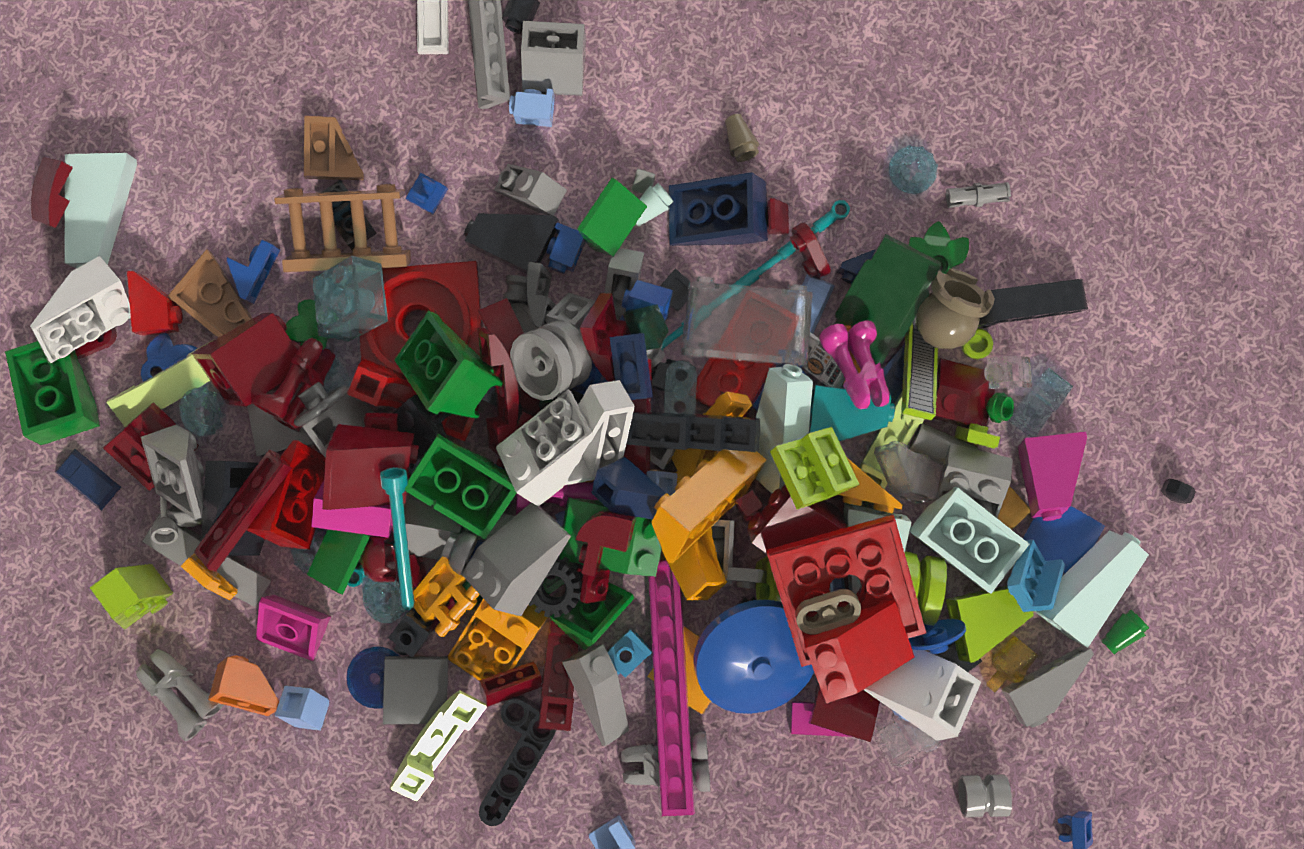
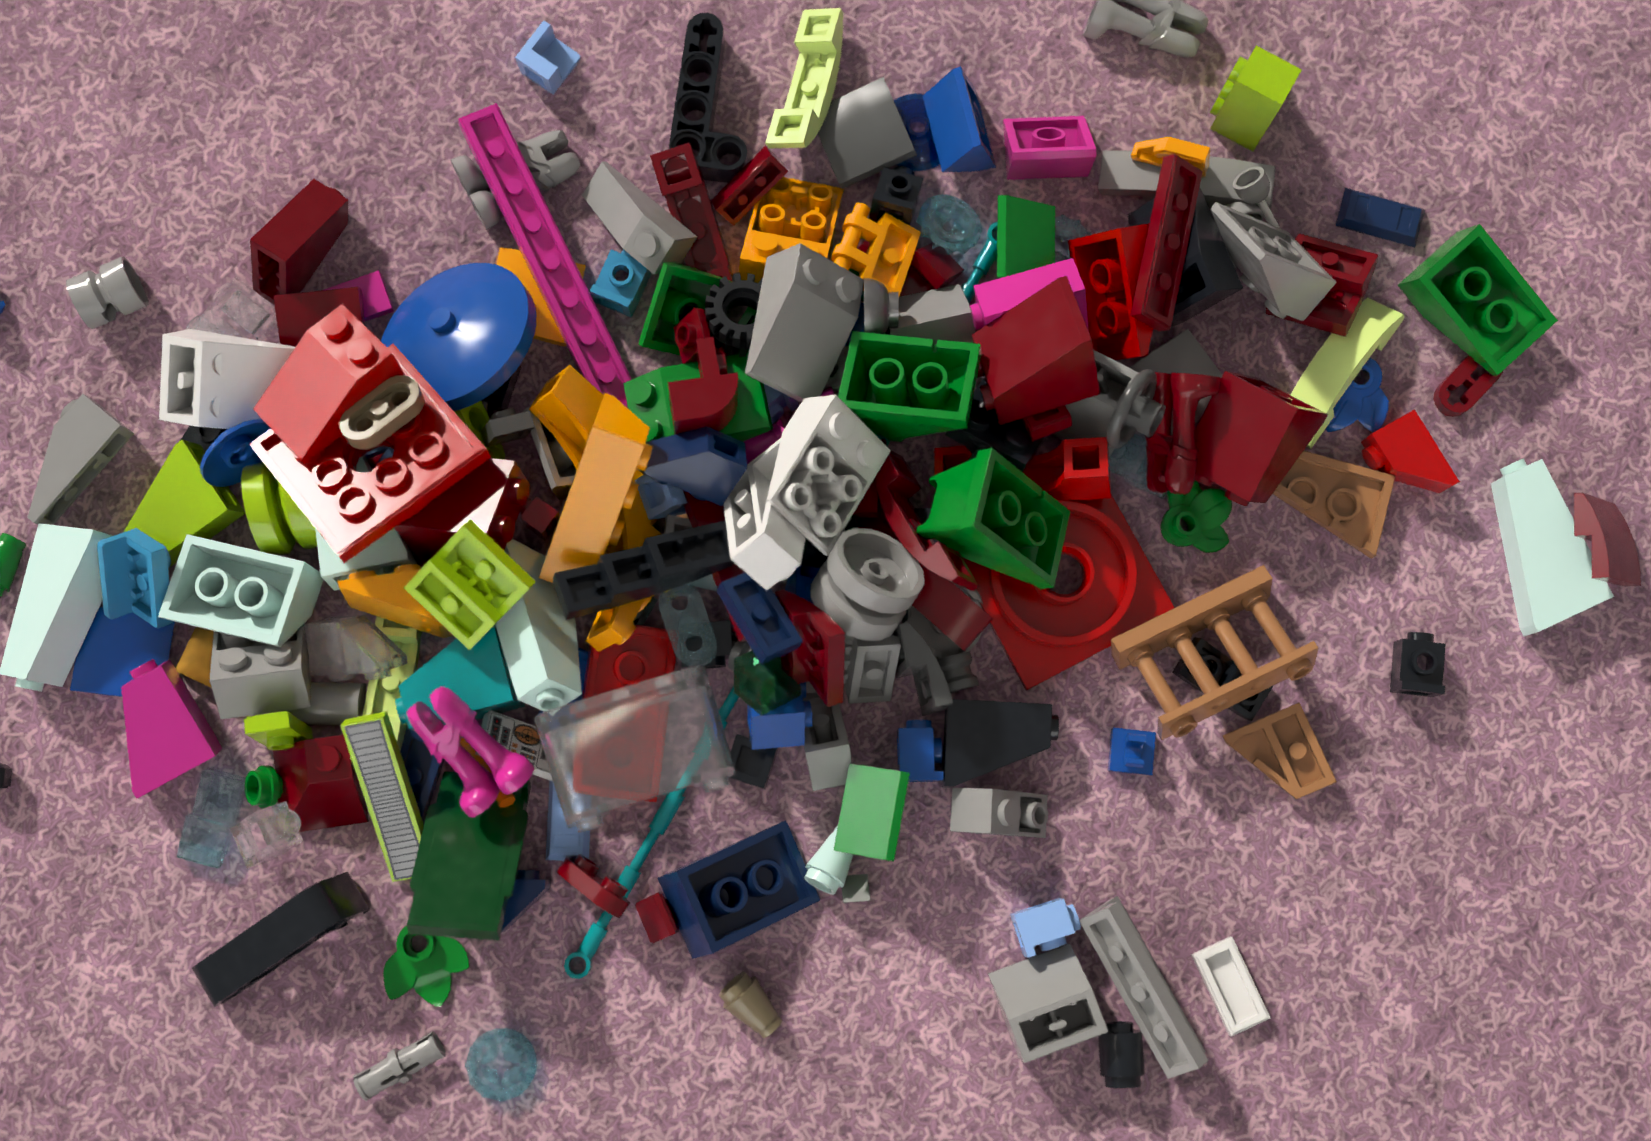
camera: 155 degrees right, 5 degrees down
(81, 310) = (1488, 404): white slope -> none
(195, 420) = (1278, 334): clear light blue gear -> none
(225, 167) = (1405, 672): none -> black brick
(243, 686) = (1072, 51): orange slope -> none
(252, 278) = (1302, 542): blue slope -> none
(302, 707) = (990, 57): light blue panel -> none
(347, 666) = (958, 124): none -> blue slope
(350, 299) = (1161, 563): clear light blue brick -> none
(379, 560) = (972, 258): dark red hair -> none
(394, 483) = (991, 343): teal piece -> none
(839, 777) = (297, 240): none -> dark red slope
(952, 310) = (369, 880): dark tan tile -> none
(979, 345) = (325, 860): lime tile -> none
(1011, 663) = (131, 467): clear yellow piece -> none

